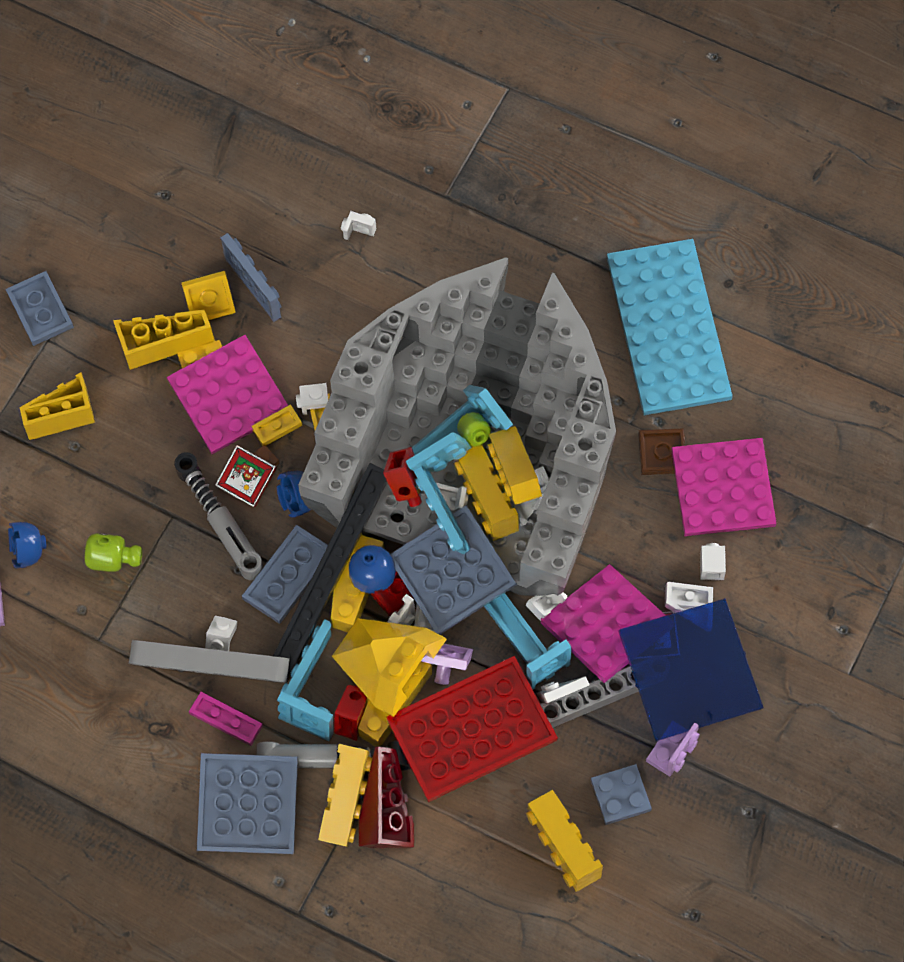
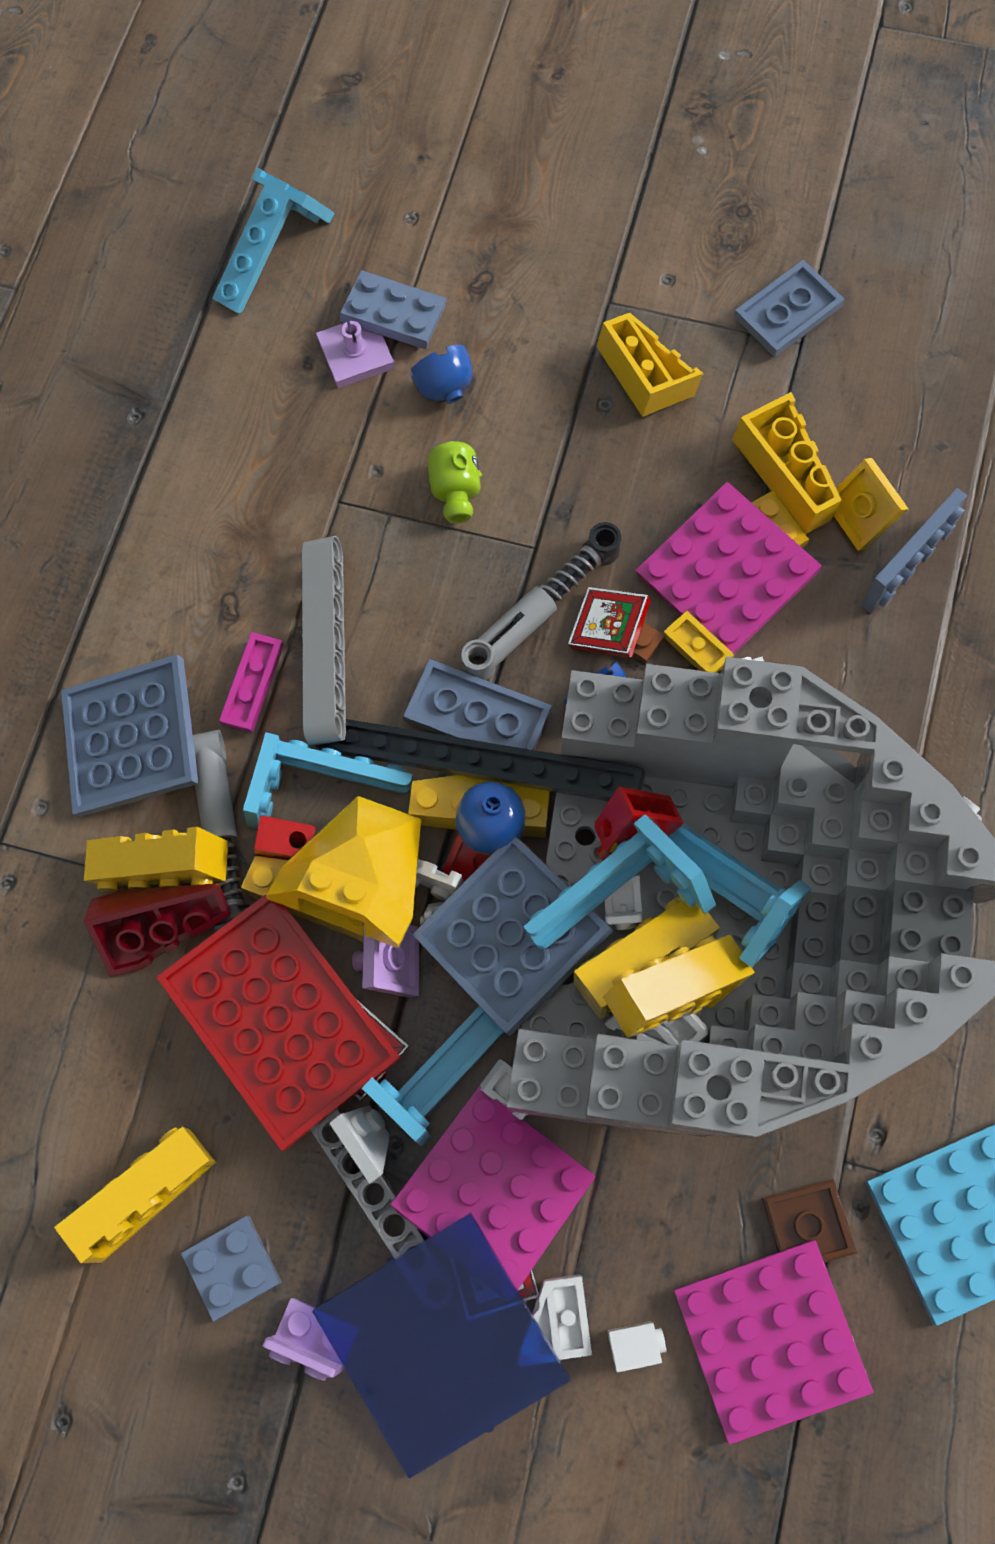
camera: 80 degrees right, 5 degrees up
(220, 633) = (371, 646): white bracket -> none
(474, 428) = (736, 910): lime head -> none

